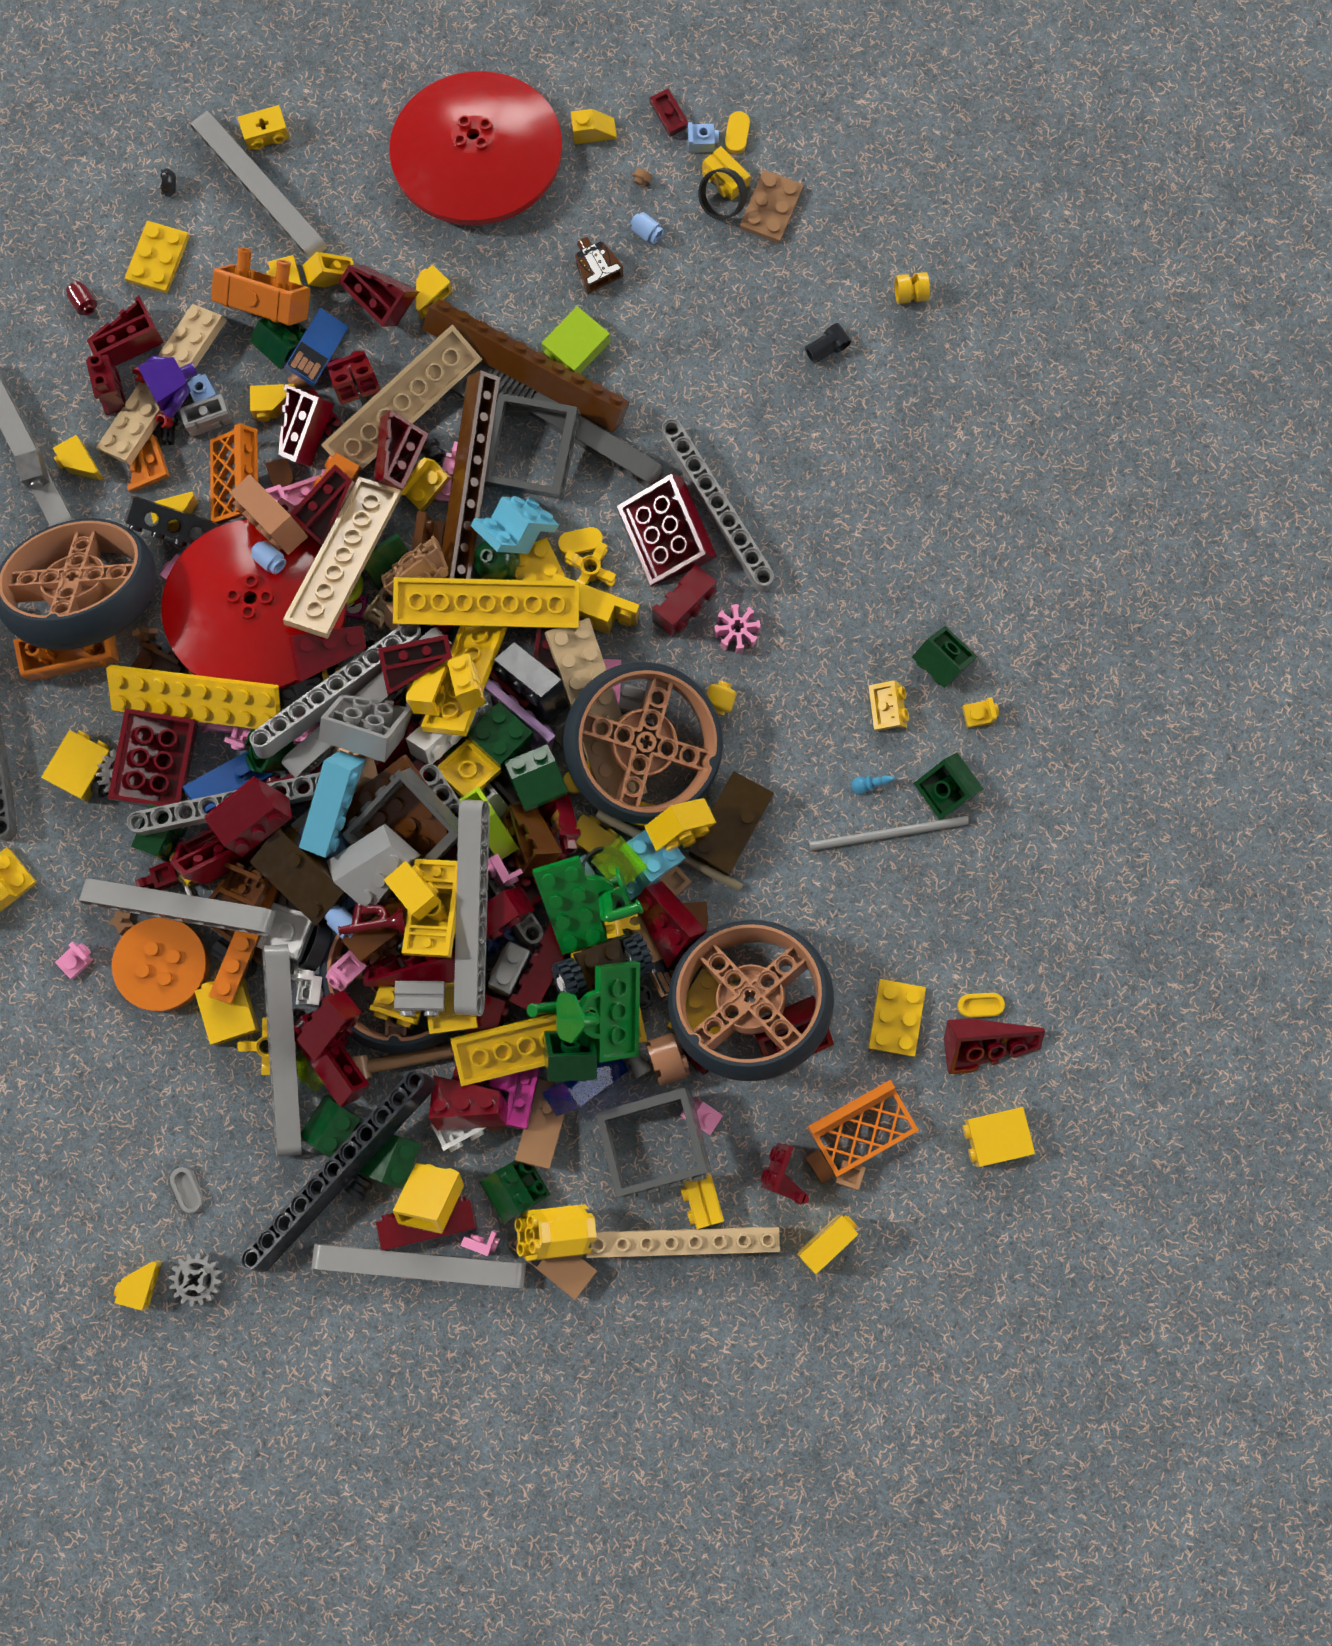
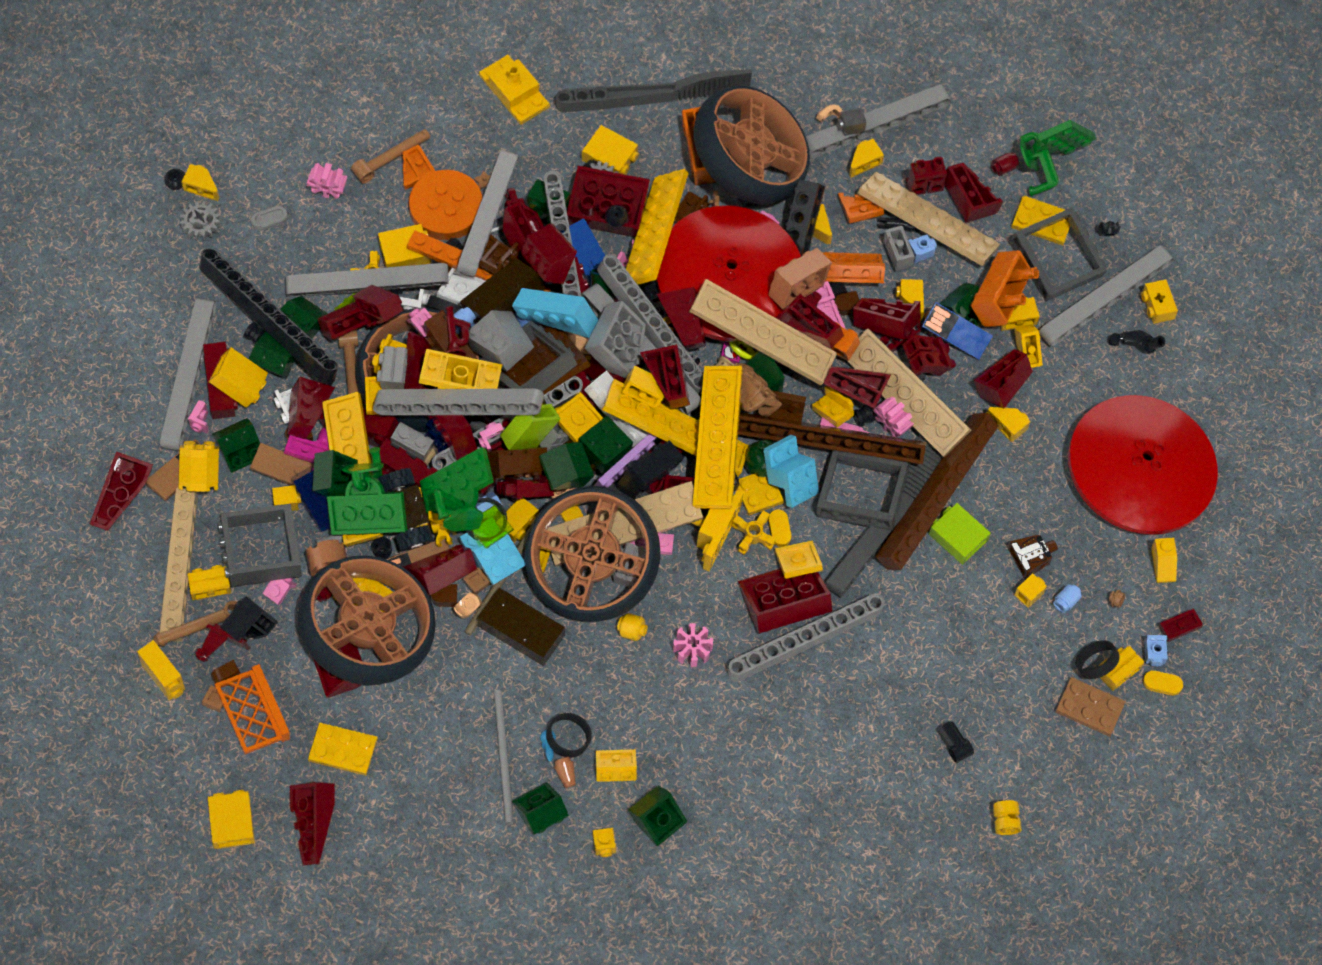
camera: 90 degrees right, 15 degrees down
(8, 499) = (829, 110): none -> light nougat hair
(68, 250) = (1061, 138): none -> green plate
(74, 959) = (456, 147): bright pink bracket -> none
(105, 1008) = (415, 166): none -> orange wing
(112, 1073) = (365, 170): none -> medium nougat piece
(134, 1118) = (327, 180): none -> bright pink gear
(140, 1322) = (174, 184): none -> black plate
(166, 383) = (921, 215): dark purple torso -> none
(182, 752) = (616, 221): none -> black plate
(203, 271) = (1043, 283): none -> dark grey window
(268, 557) = (763, 277): light blue brick -> none
(316, 148) = (1139, 339): none -> black arm
(413, 890) = (474, 357): yellow brick -> none
(435, 414) = (893, 417): none -> bright pink gear
(466, 682) = (646, 411): yellow brick -> none
(579, 1326) = (121, 486): none -> dark red wedge
(585, 1121) = (287, 495): none -> yellow brick
(622, 515) = (798, 559): none -> yellow plate
(640, 266) = (1030, 590): none -> yellow brick
(680, 825) = (518, 574): yellow brick -> none
(684, 601) = (718, 602): dark red wedge -> none
(707, 890) = (467, 605): none -> light nougat hair
(762, 1141) = (248, 620): none -> black wedge
(765, 1204) = (194, 626): none -> medium nougat piece
(860, 738) = (560, 750): none -> black tyre
(901, 761) = (565, 771): none -> nougat cone
(981, 1005) = (346, 819): yellow tile -> none

